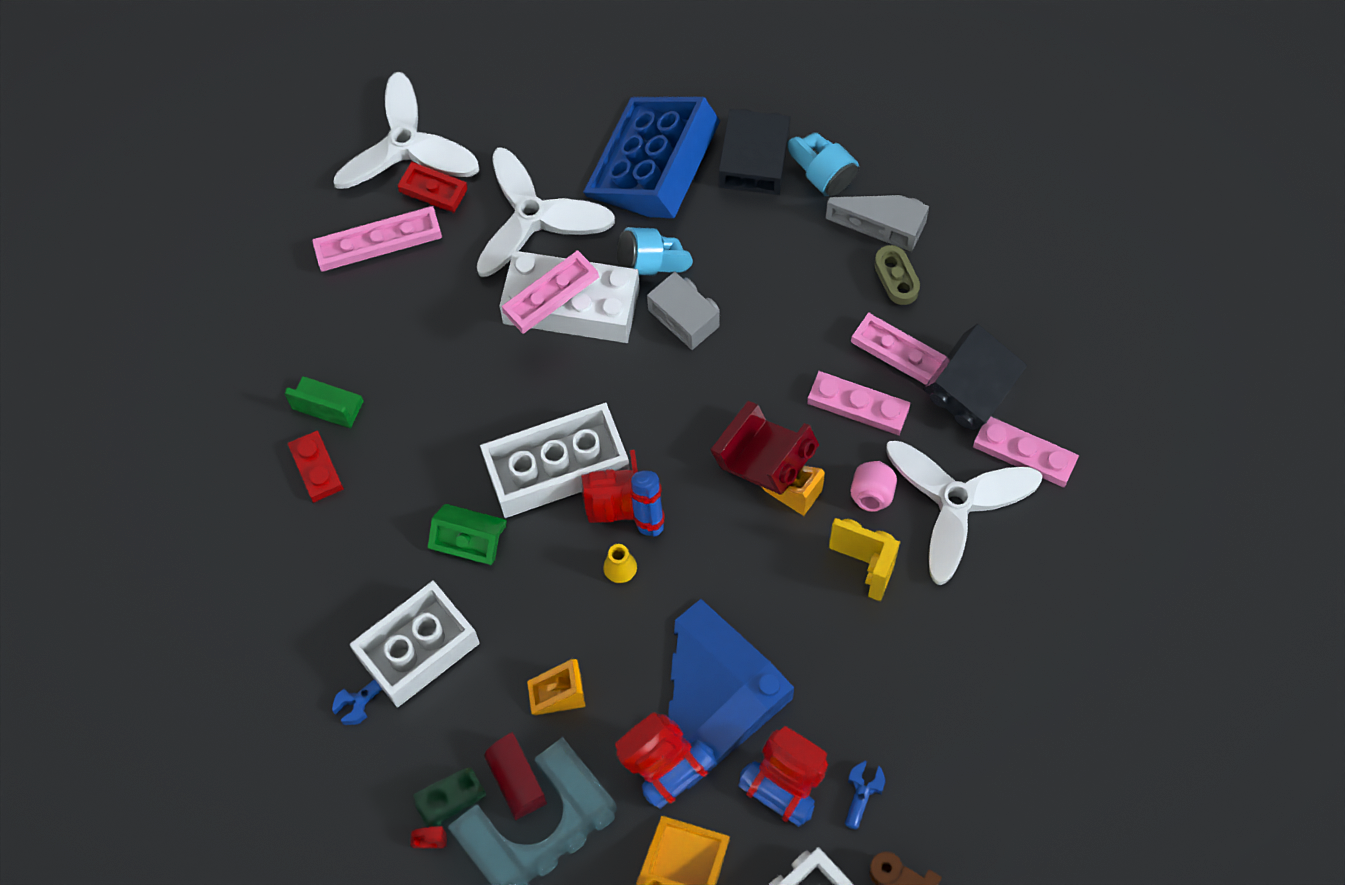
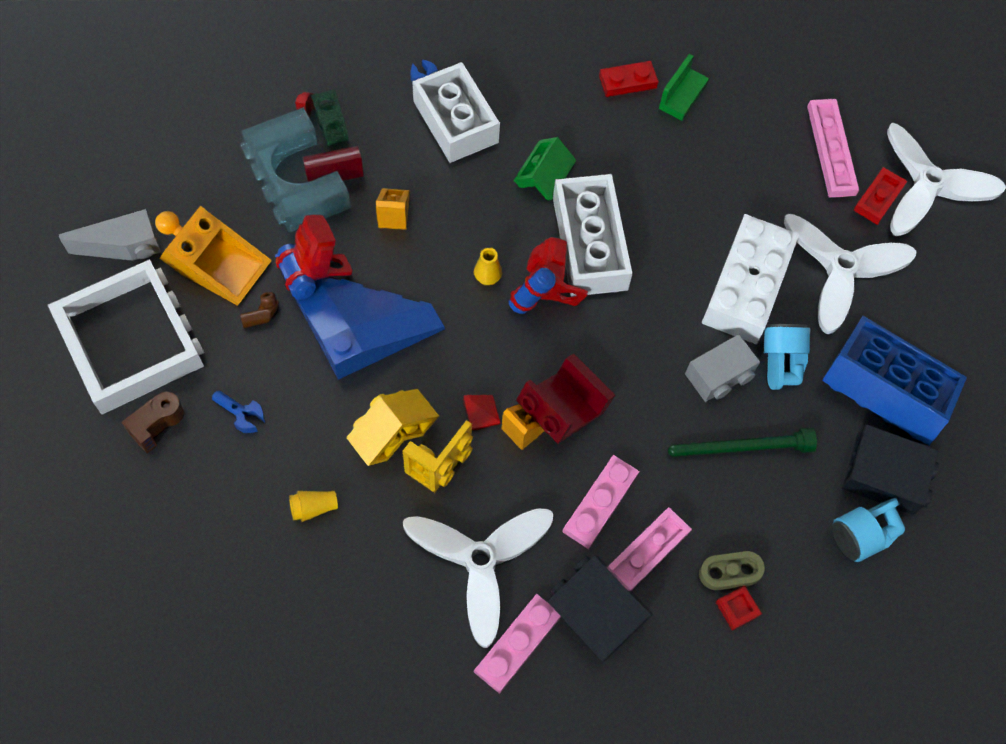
camera: 95 degrees right, 0 degrees up
(550, 292) = (747, 245): bright pink plate -> none
(735, 802) = (264, 313): none -> reddish brown arm
(743, 230) = (803, 440): none -> dark green piece
(786, 775) = (265, 347): red piece -> none
(792, 537) = (481, 411): none -> red slope
(845, 612) = (390, 423): none -> yellow brick
(873, 486) = (511, 487): bright pink head -> none
(887, 218) = (798, 577): light grey slope -> none
(930, 266) = (738, 607): none -> red tile
(949, 681) = (311, 504): none -> yellow cone

